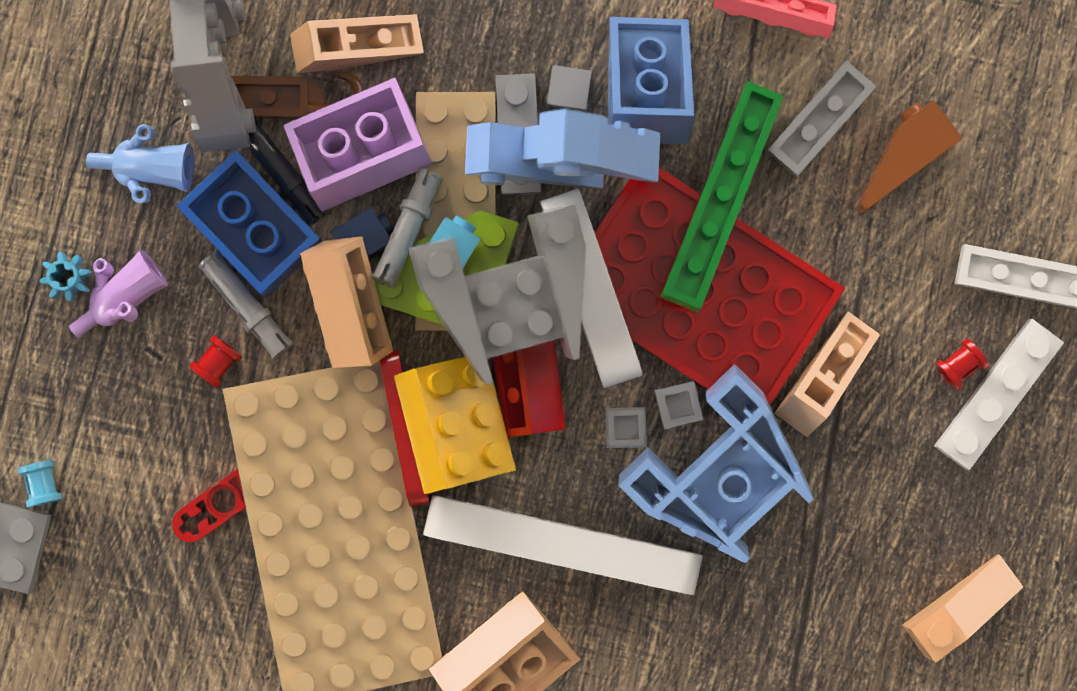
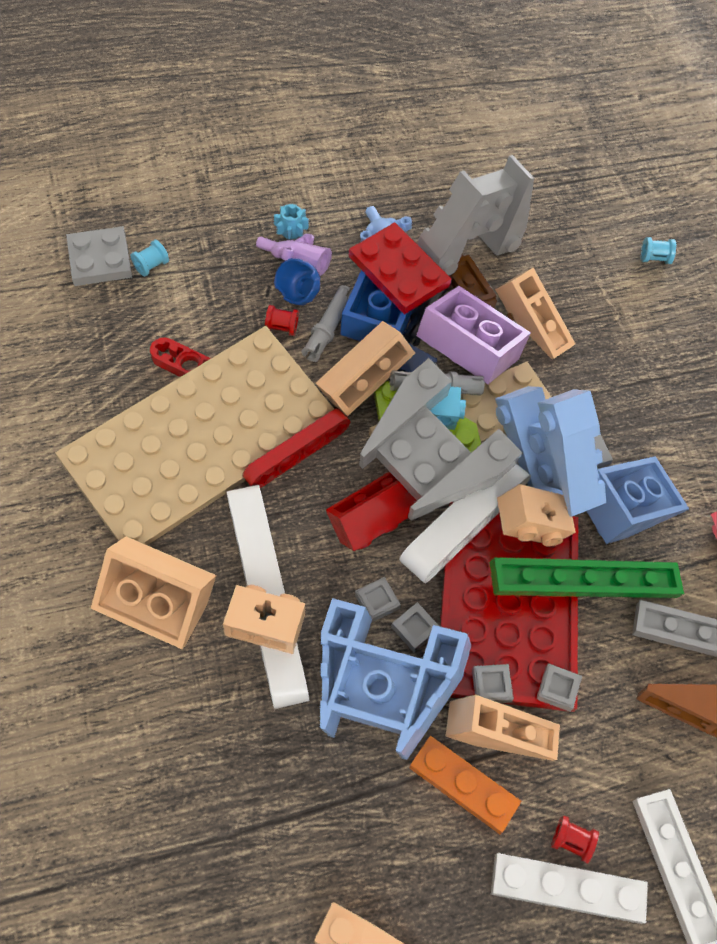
camera: 65 degrees right, 25 degrees down
(171, 316) = (297, 281): none -> blue hair
(228, 189) = (399, 268): none -> red plate
(453, 425) = (317, 471): yellow brick -> none
(604, 589) = (278, 630): none -> light nougat brick
(632, 219) = (535, 515): none -> light nougat brick
(781, 362) = (493, 682): none -> light grey tile
(818, 295) = (559, 687): none -> light grey tile
(858, 440) = (465, 785): none -> orange plate

